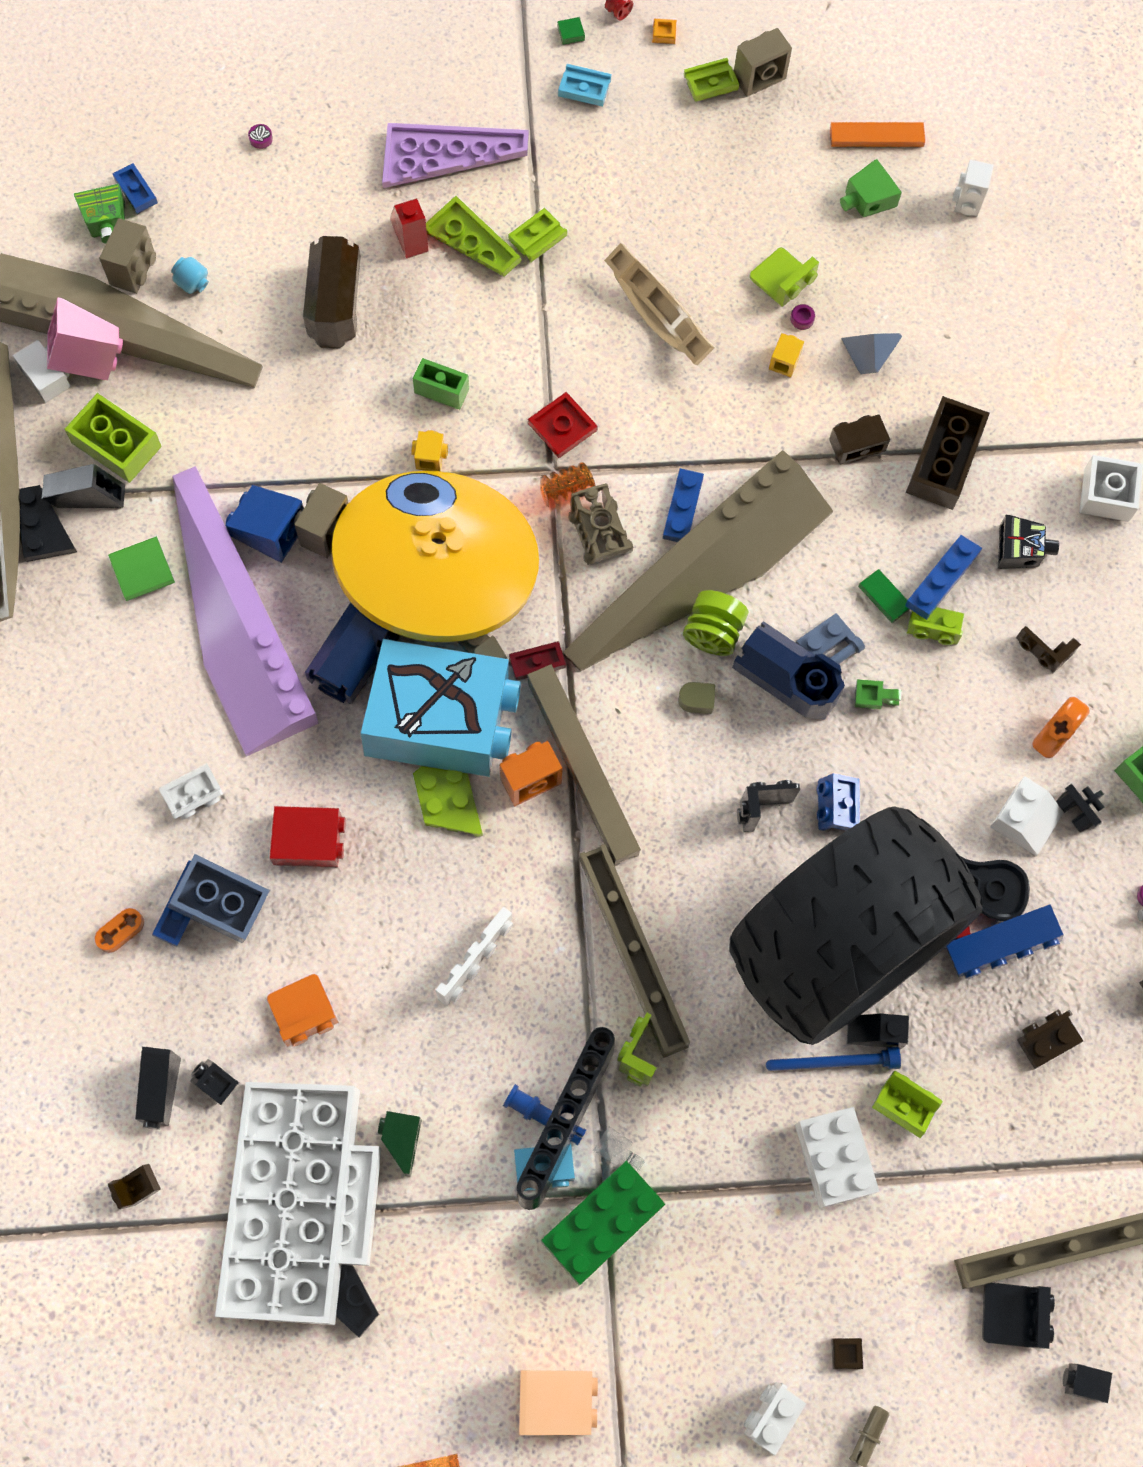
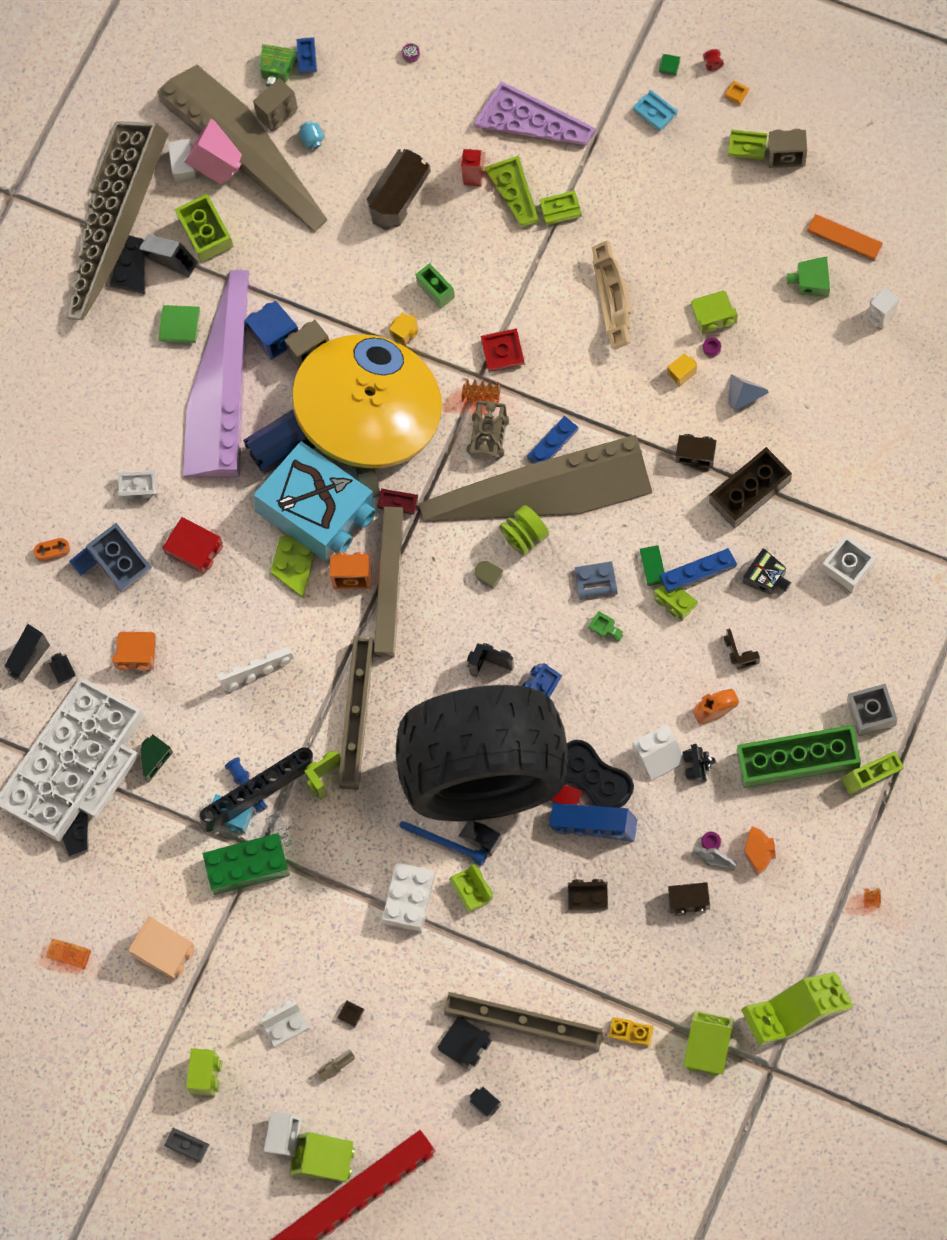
camera: 40 degrees right, 0 degrees up
(790, 672) = (553, 585): dark blue brick -> none

